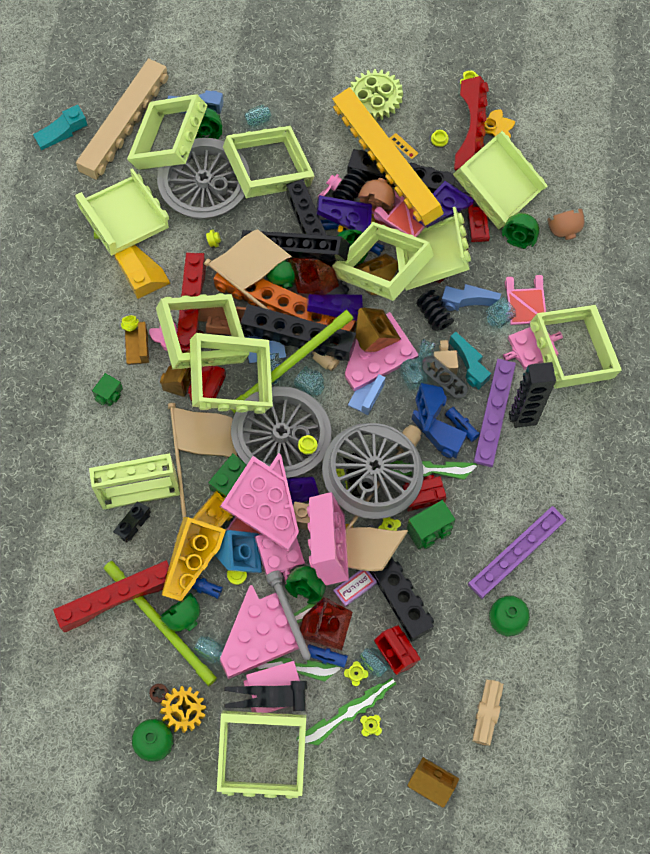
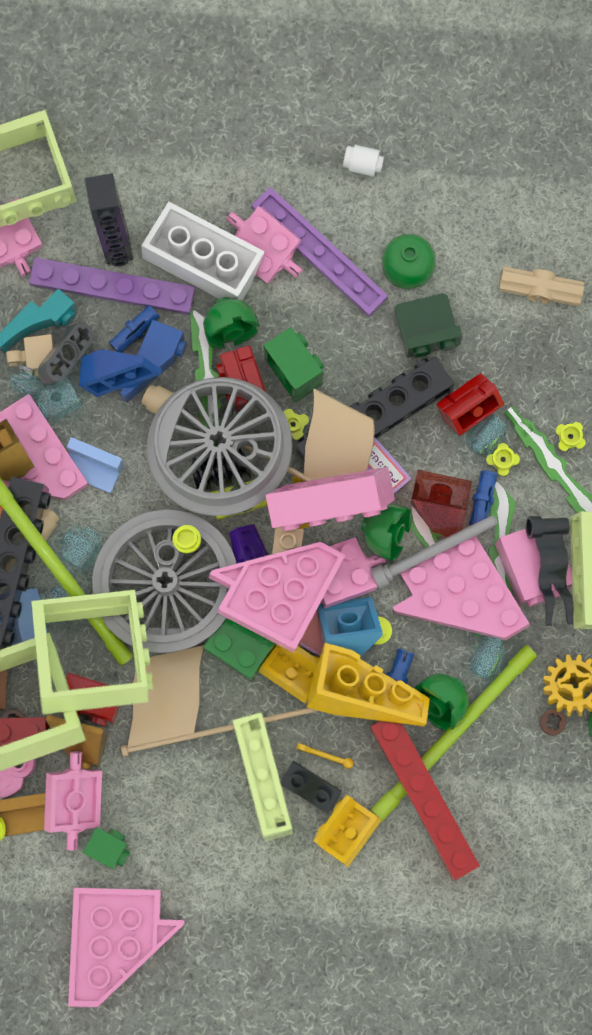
camera: 90 degrees left, 10 degrees up
(49, 392) = (112, 939): none -> bright pink wing
(99, 543) = (346, 830): none -> yellow bracket
(139, 368) = (73, 800): none -> bright pink plate
(147, 549) = (347, 762): none -> yellow hinge
(459, 625) = (427, 326): none -> dark green bracket
(464, 483) = (228, 322): none -> green cylinder
(515, 469) = (202, 253): none -> white slope
(522, 513) = (272, 237): none -> bright pink plate
(587, 587) = (363, 160): none -> white brick

